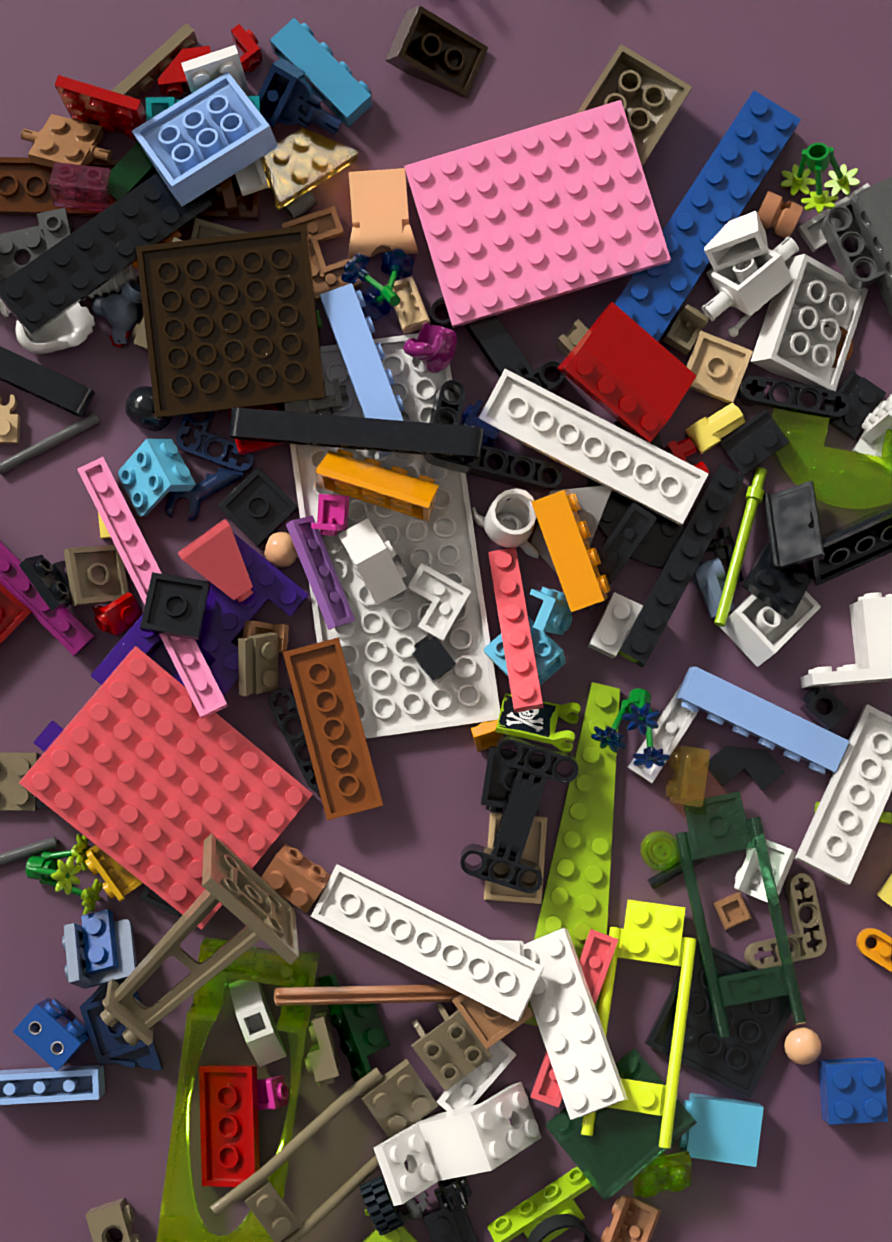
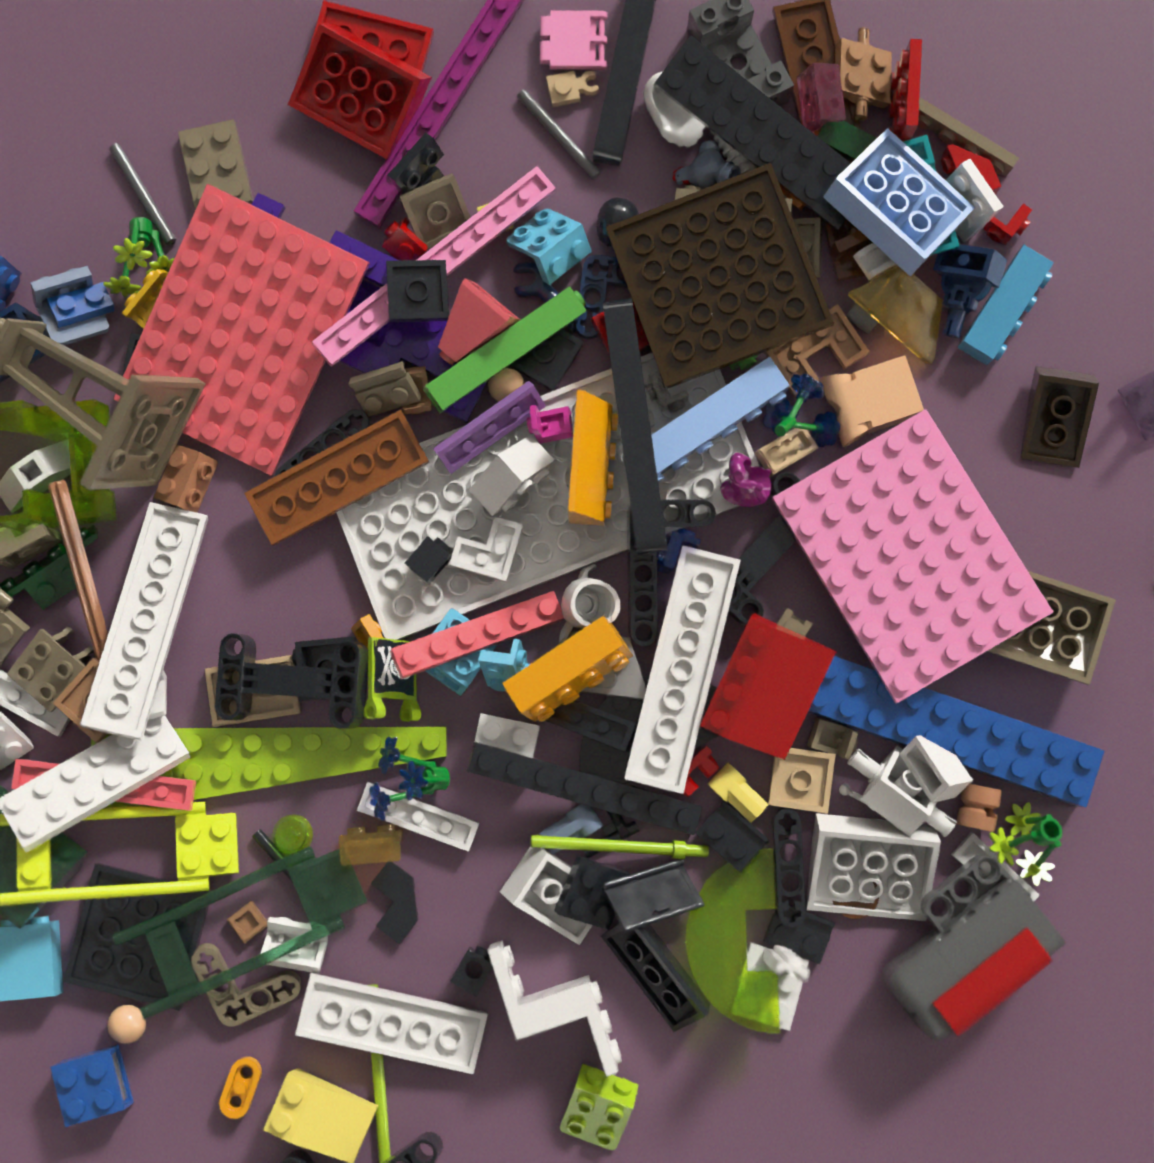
camera: 85 degrees right, 0 degrees up
(251, 539) = (505, 349): none -> bright green brick
(762, 720) = (444, 908): light blue brick -> none

